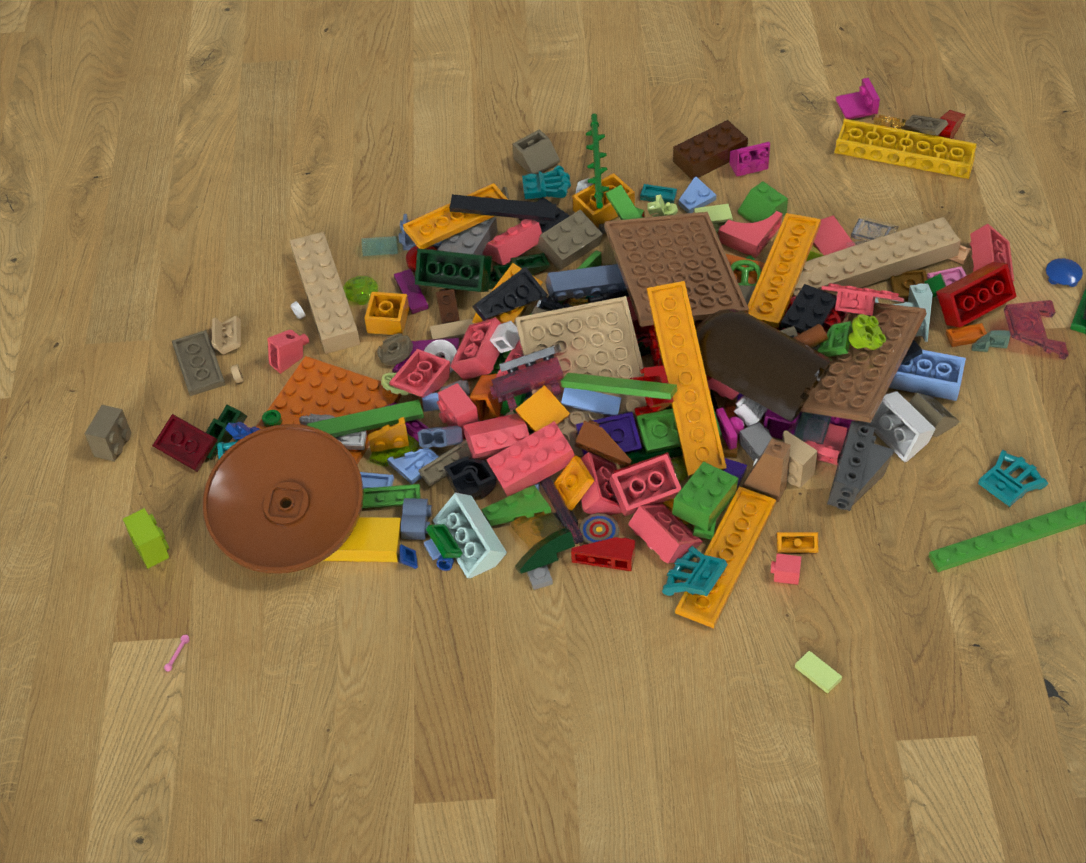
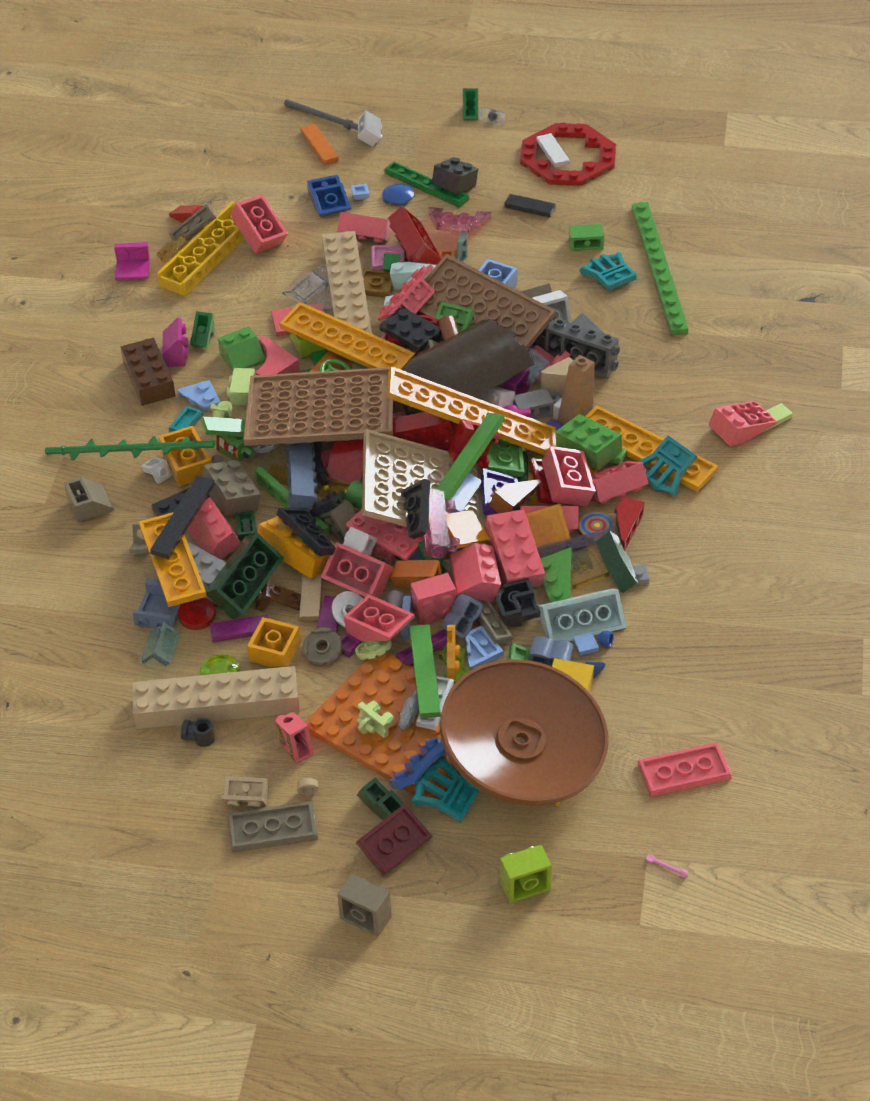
camera: 80 degrees left, 5 degrees down
(271, 418) = (389, 755): green tile -> none
(287, 290) = (200, 731): none -> black piece
(291, 652) = (684, 769): none -> coral tile
(298, 311) = (232, 724): white tile -> none
(304, 395) = (371, 721): none -> yellowish green hips
(444, 541) = (587, 631): green tile -> none
(548, 184) = (135, 507): teal plate -> none
(778, 170) = (202, 329): none -> green slope
(786, 568) = (670, 412): coral brick -> none
(792, 636) = (740, 422): none -> coral slope
(797, 542) = (639, 405): light orange slope -> none
(866, 333) = (463, 293): lime plate -> none
(943, 168) = (258, 223): none -> coral brick
(1029, 216) = (328, 195): none -> blue slope
(1050, 239) = (360, 192): none -> light blue plate
(1060, 446) = (586, 237): none -> bright green brick

